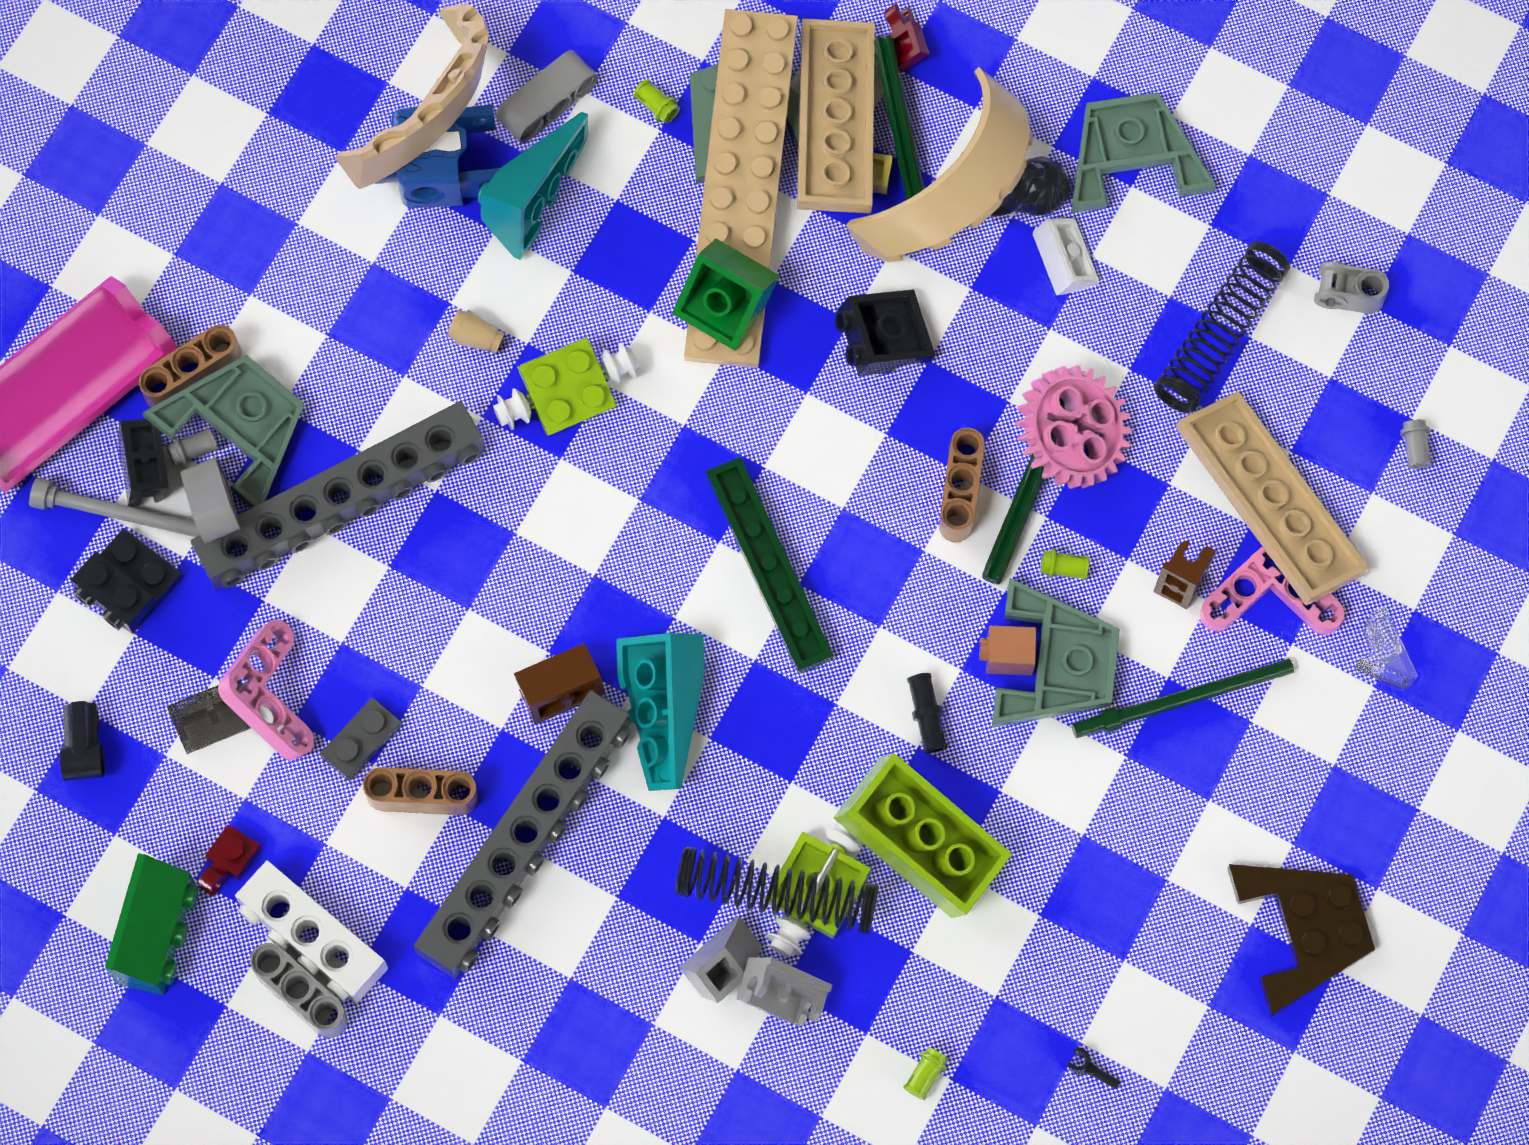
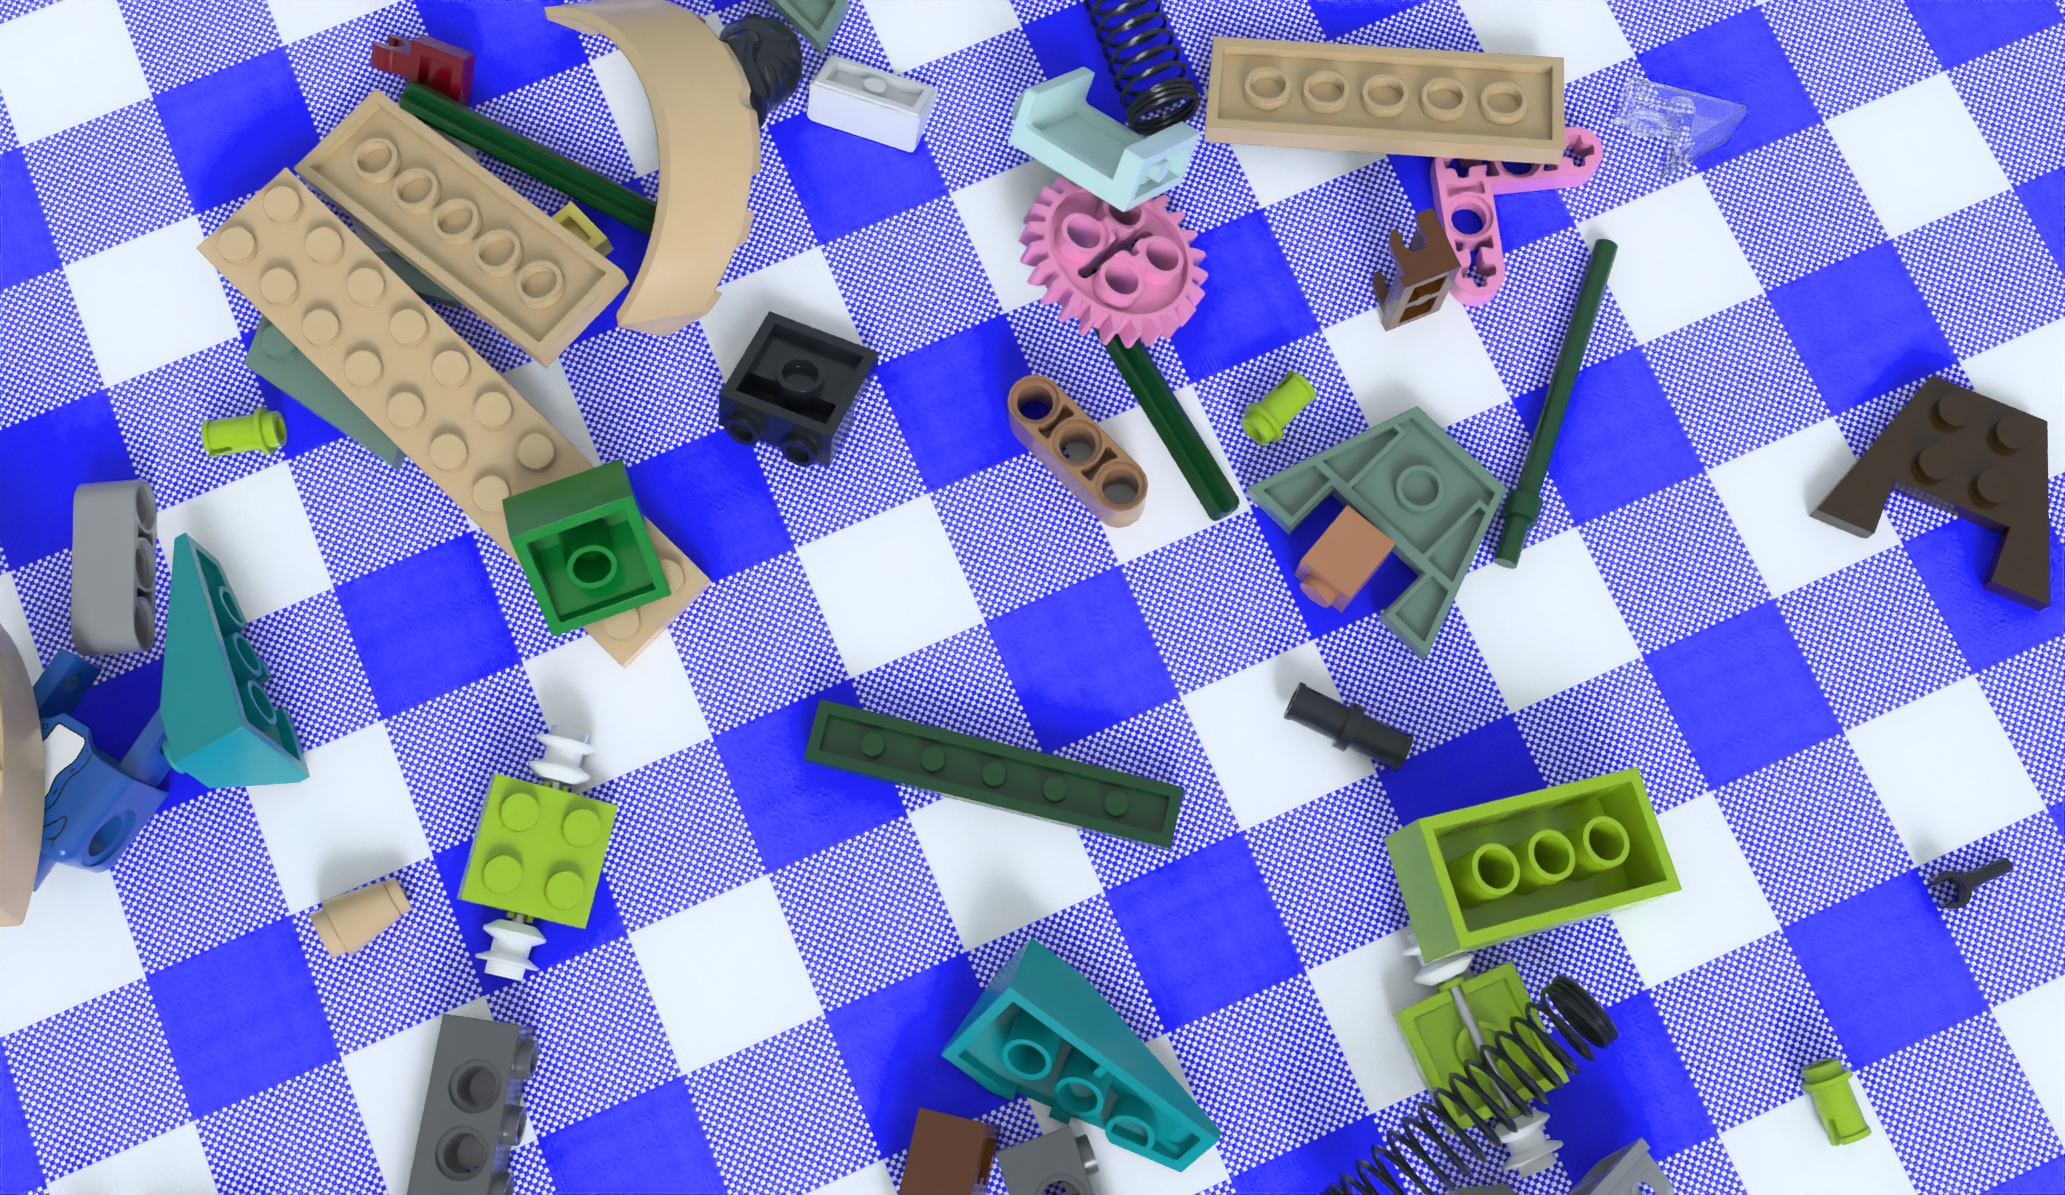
camera: 50 degrees left, 5 degrees up
(1124, 375) = (1094, 149): none -> light aqua panel

